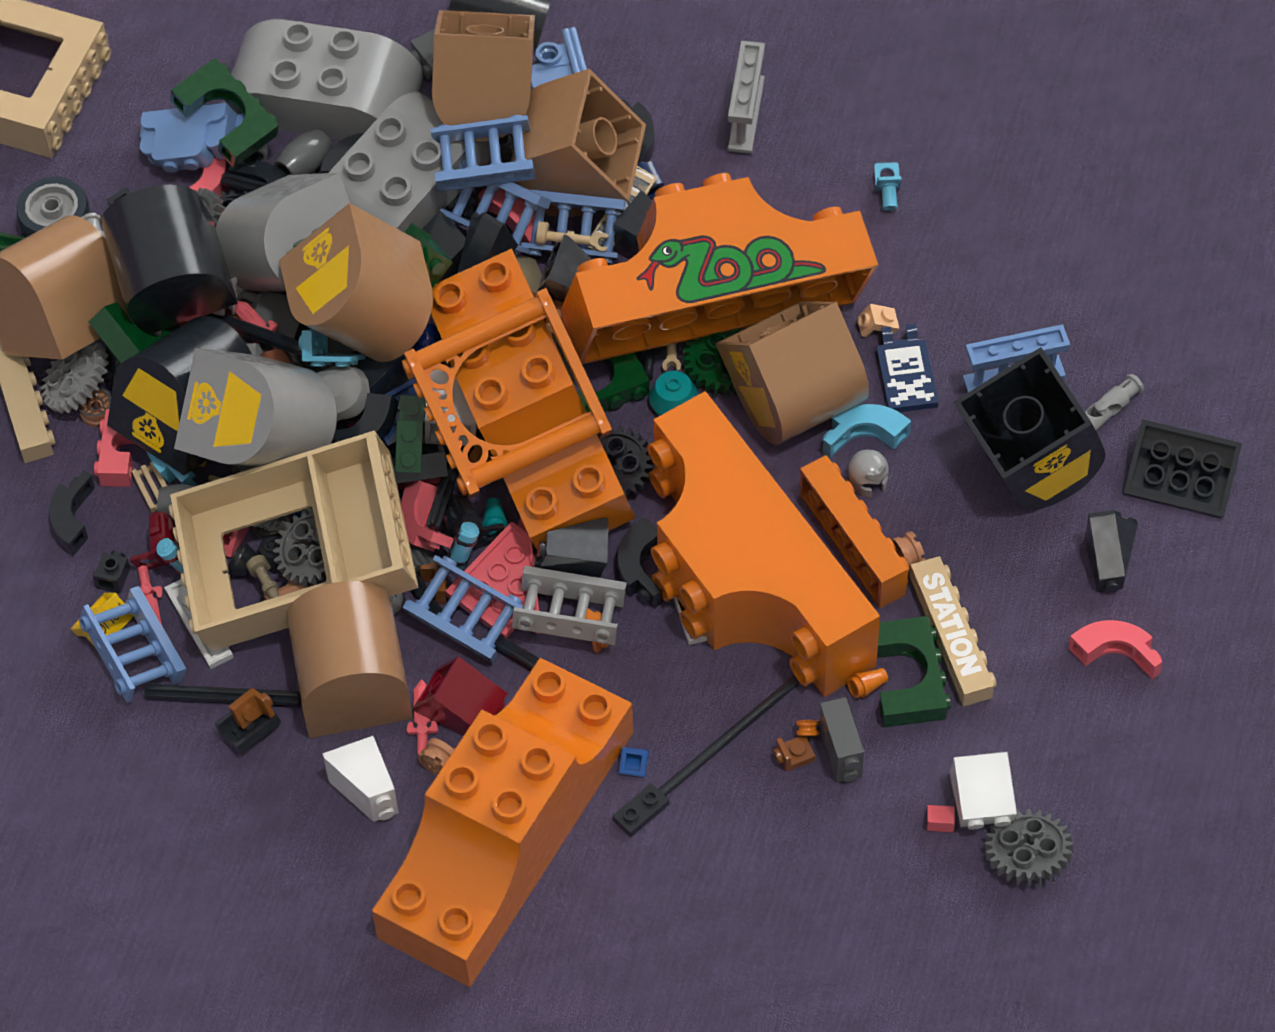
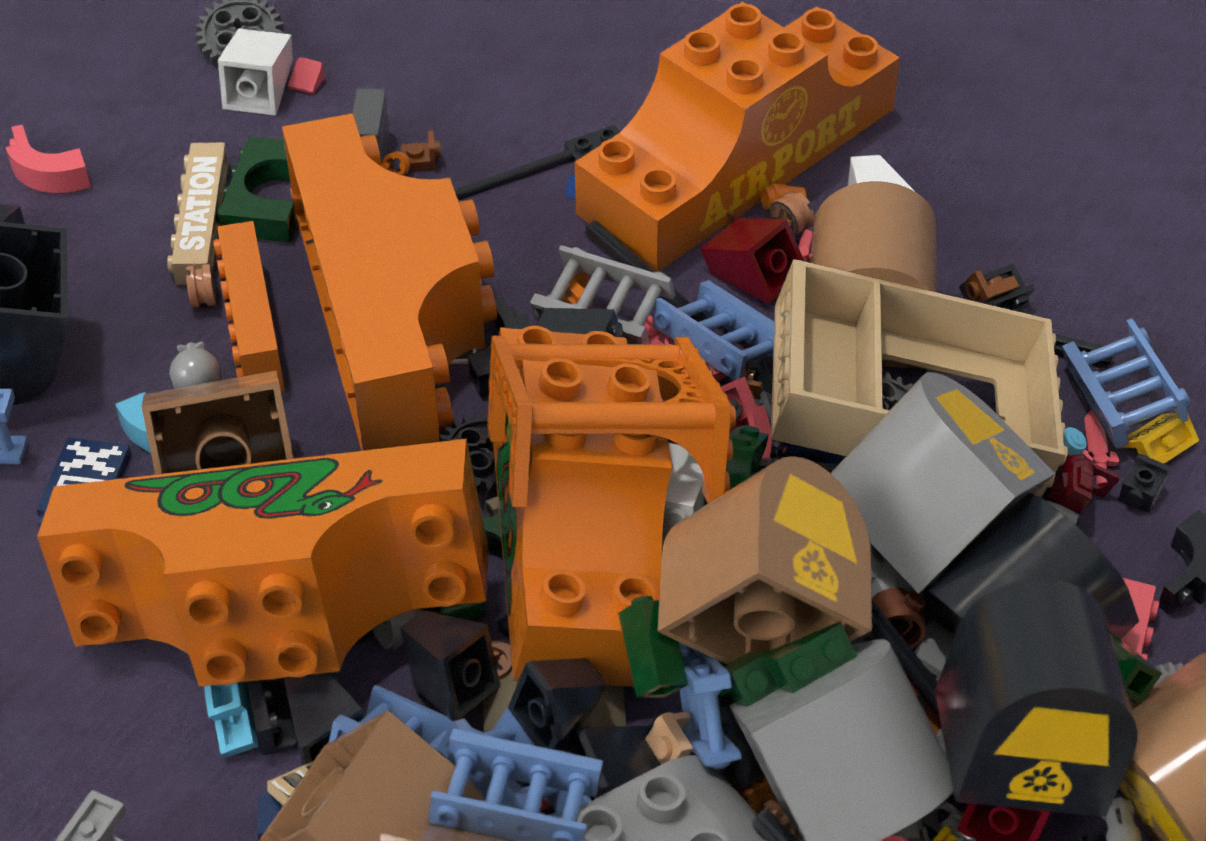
camera: 165 degrees left, 10 degrees down
(544, 235) = (426, 719): tan piece -> none

